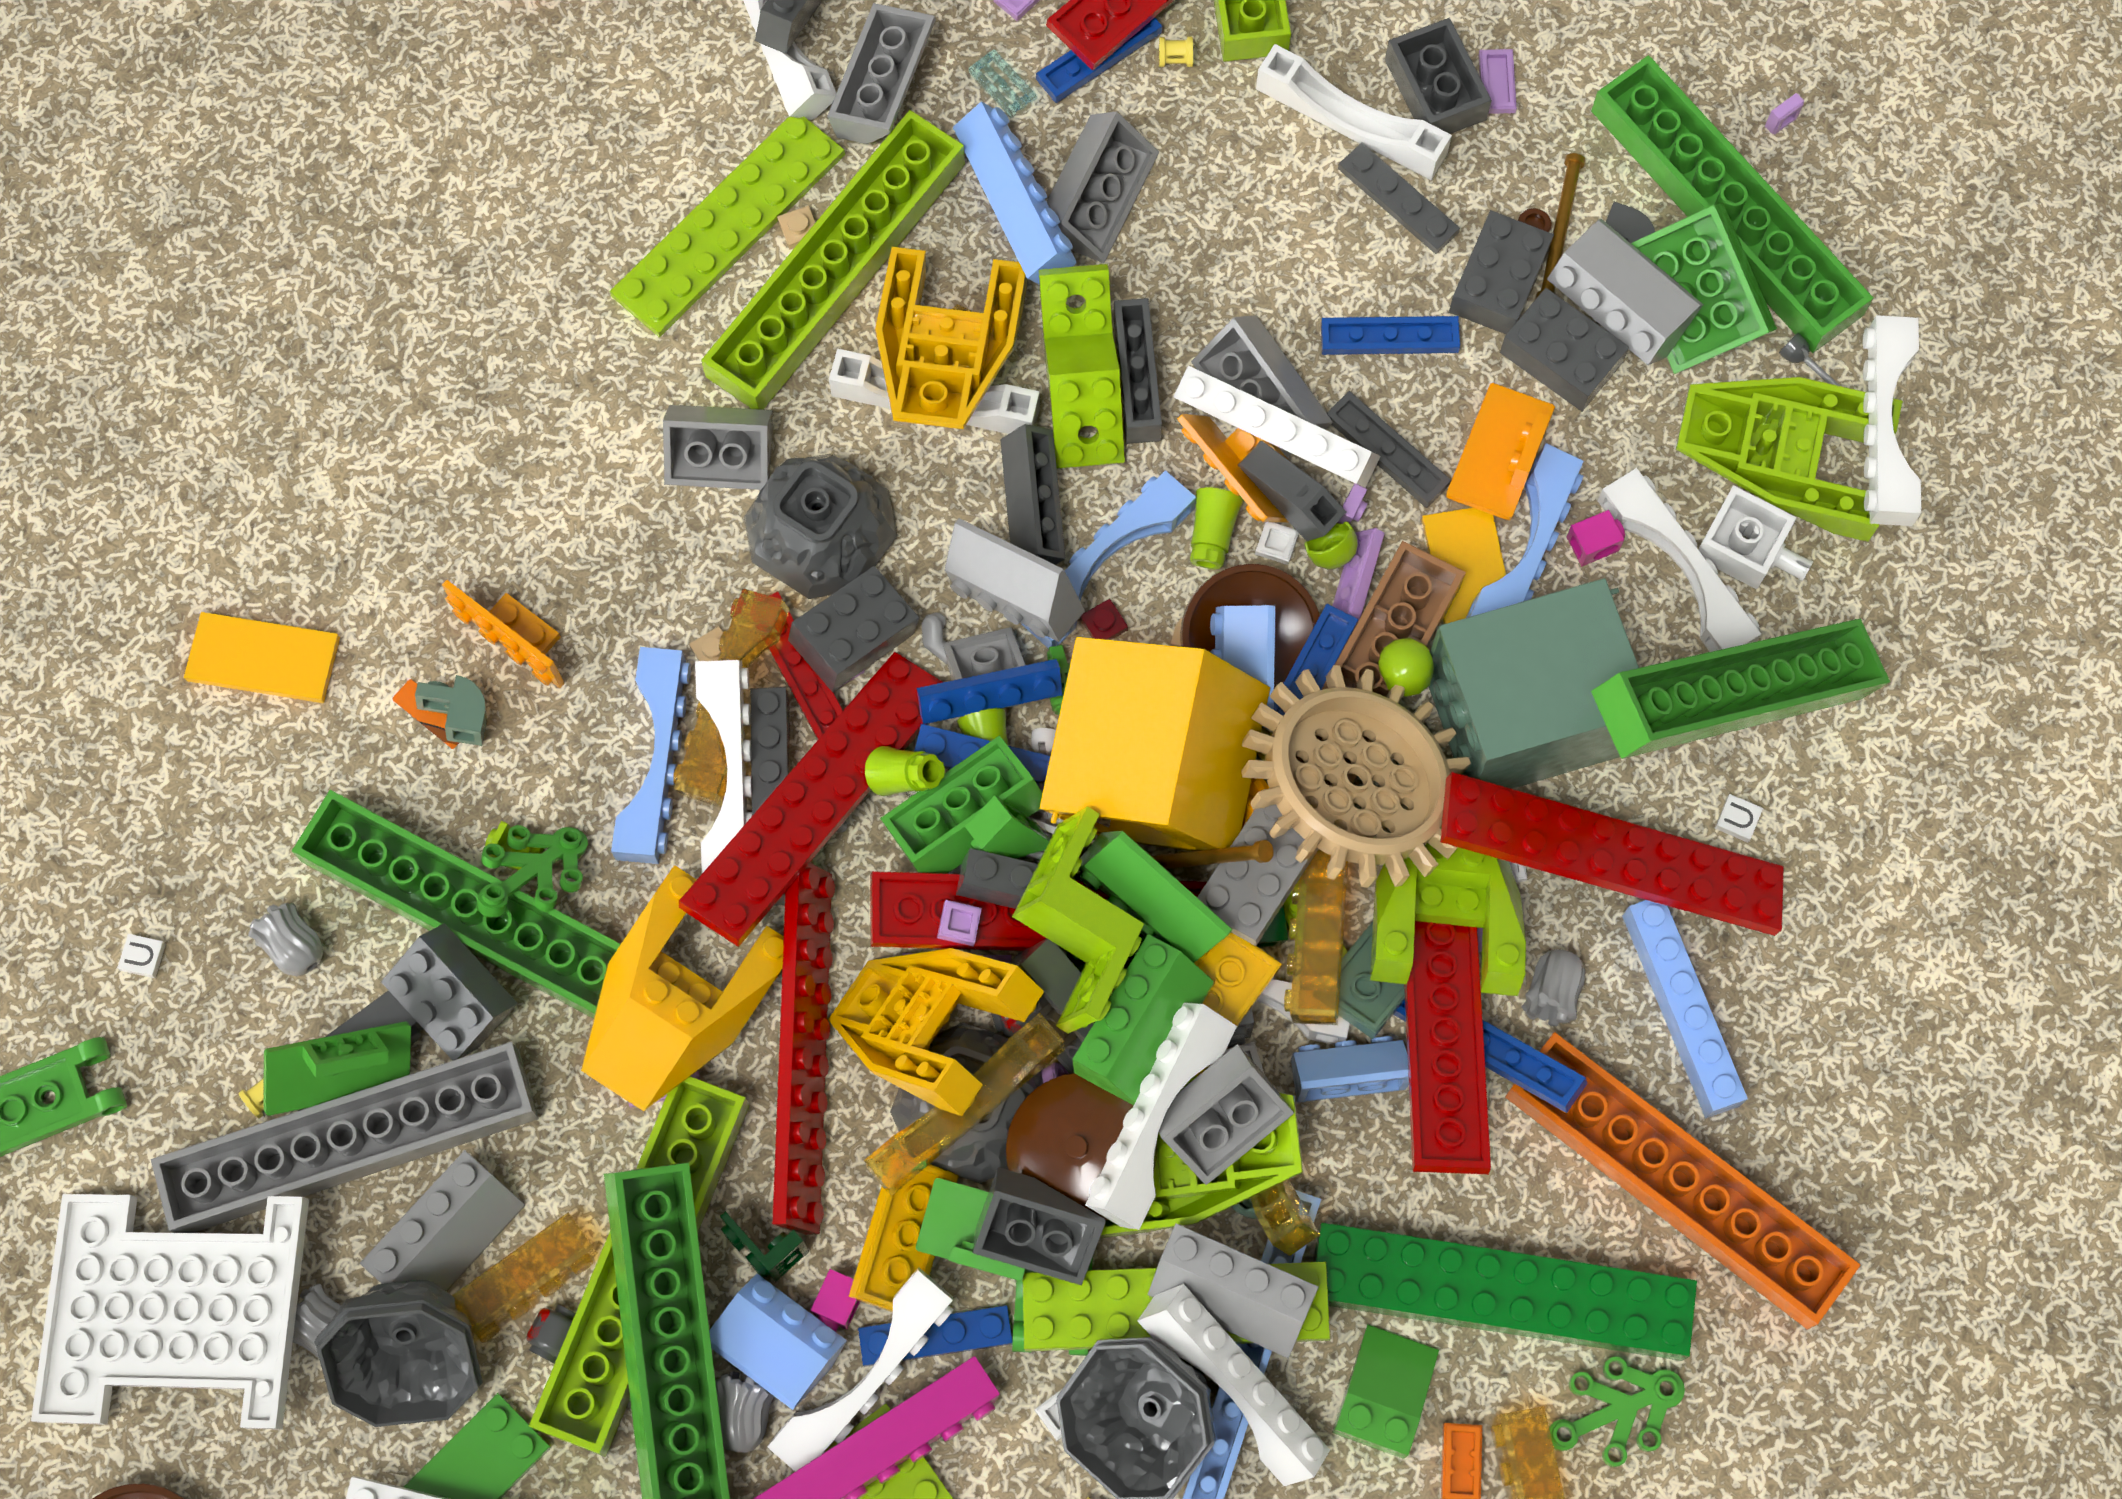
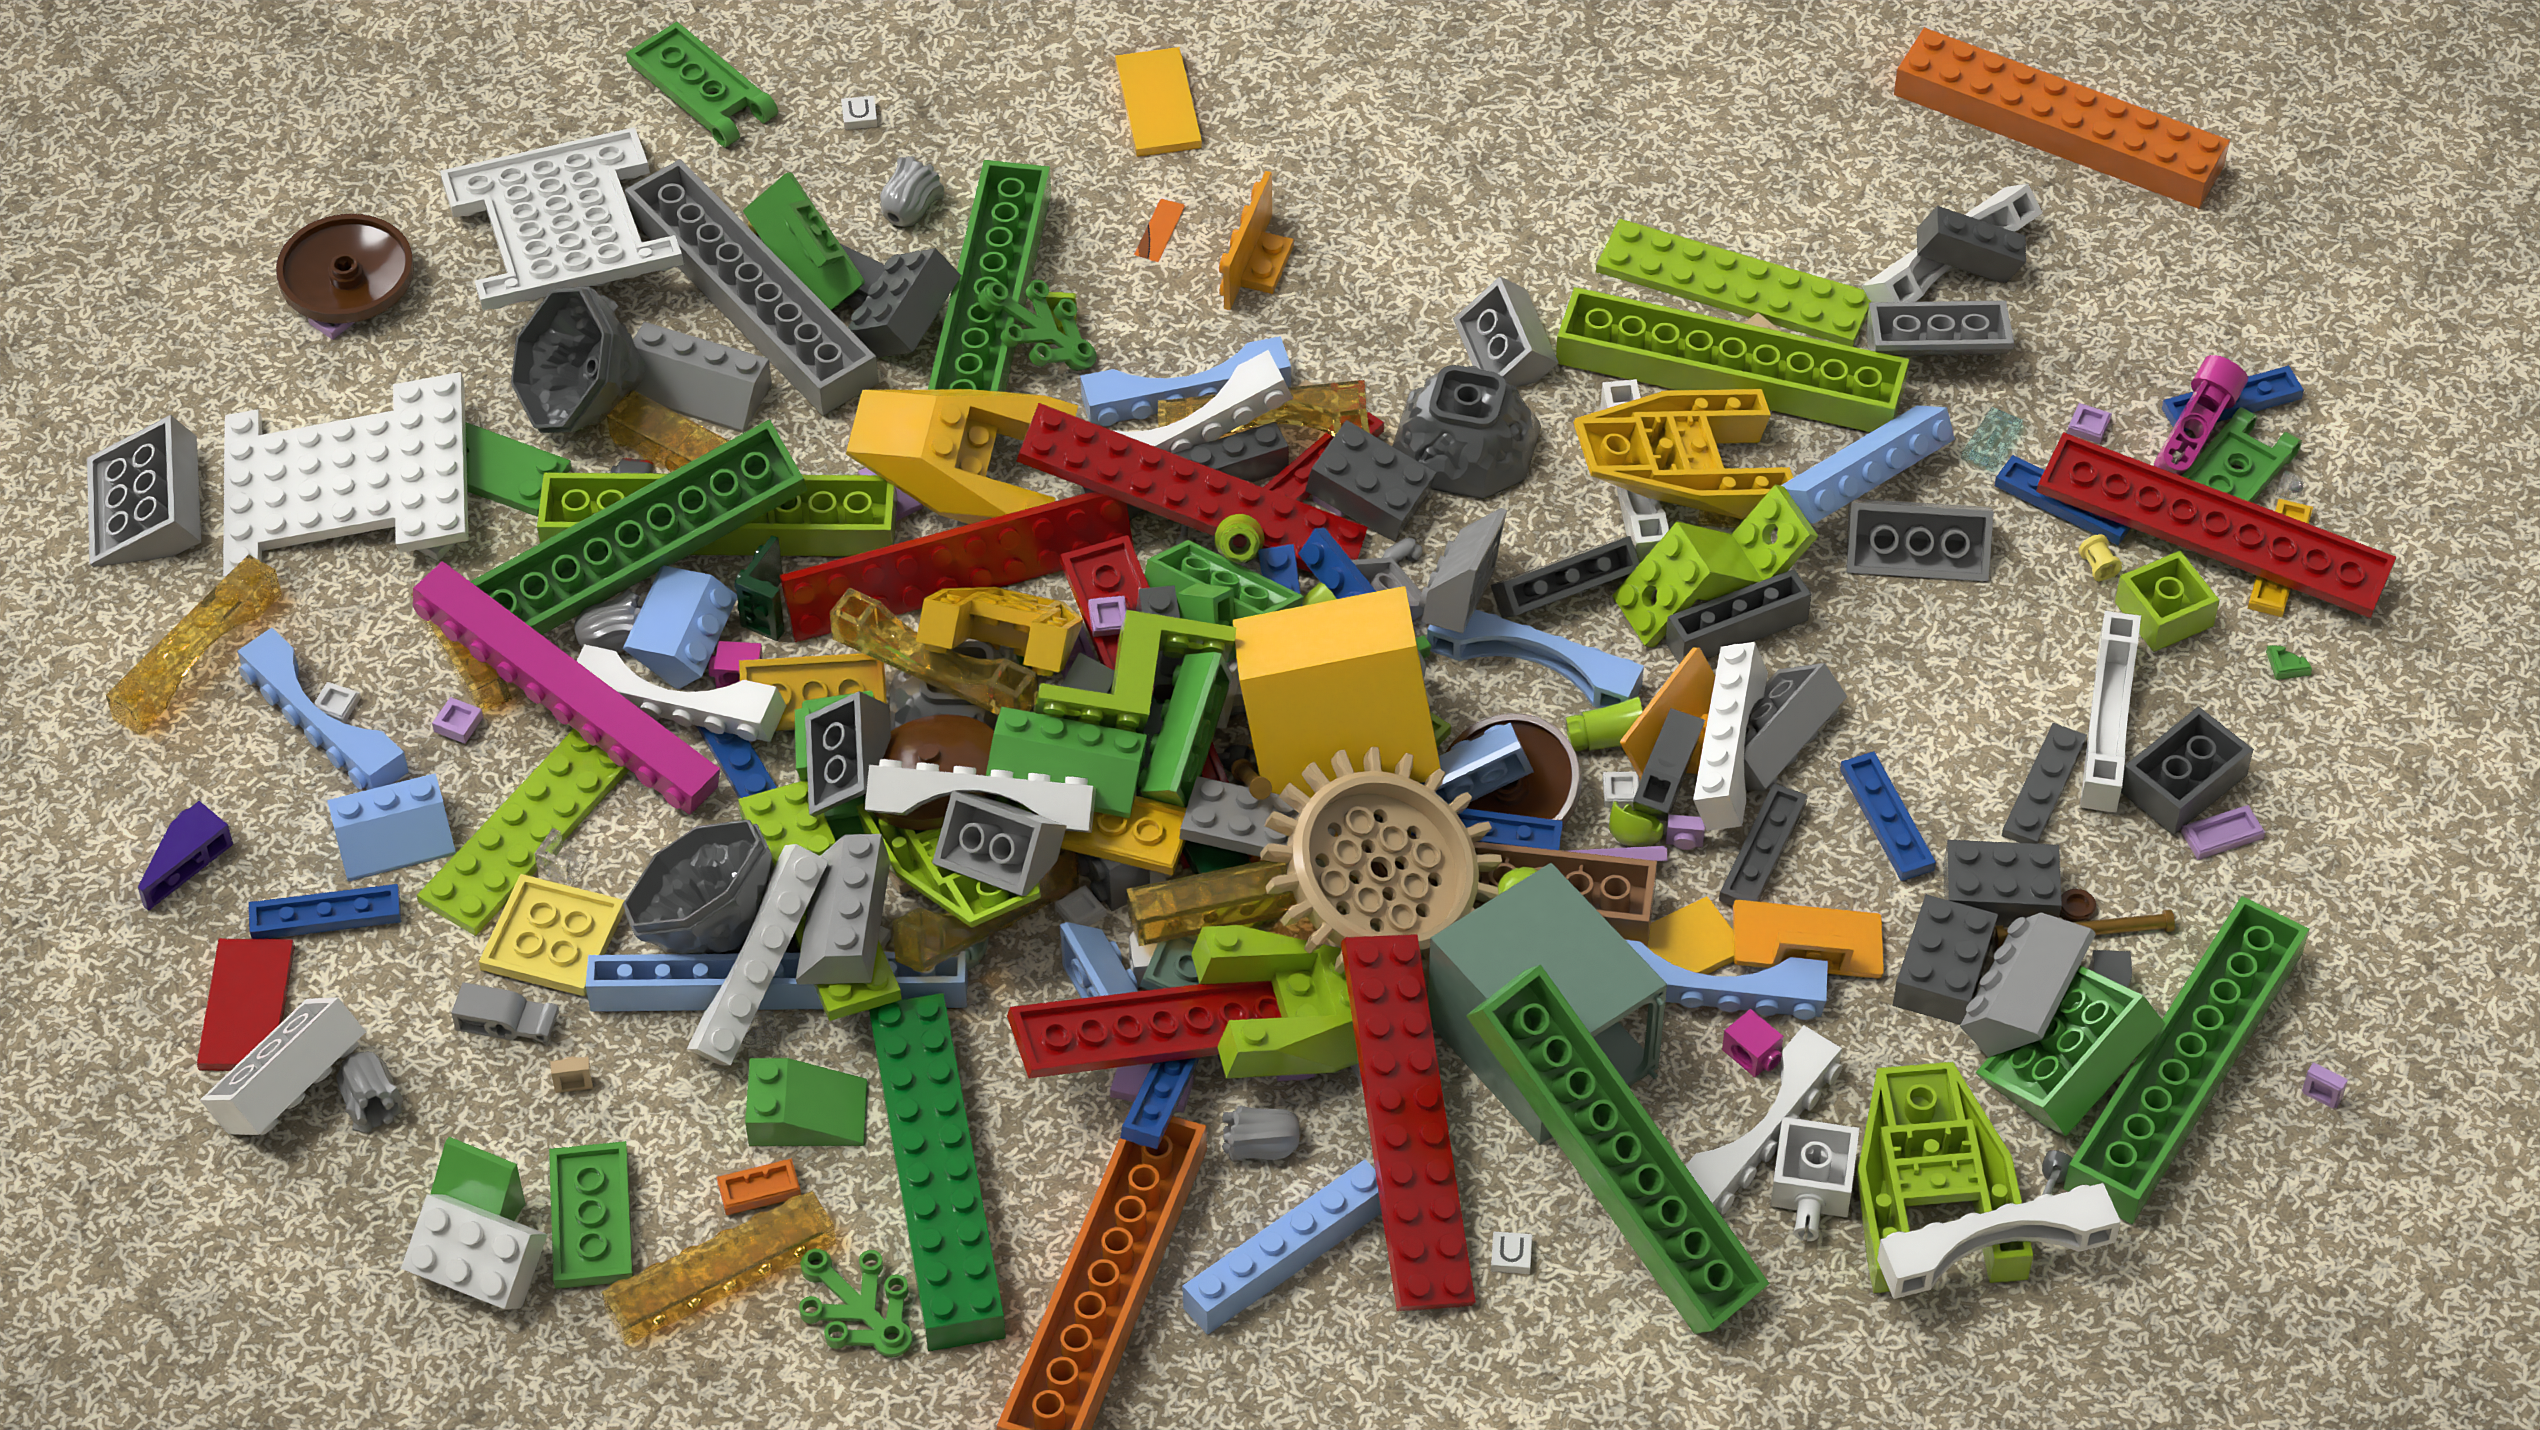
camera: 70 degrees right, 20 degrees down
(462, 704) = (1167, 243): sand green brick -> none
(1104, 621) = (1473, 677): dark red plate -> none

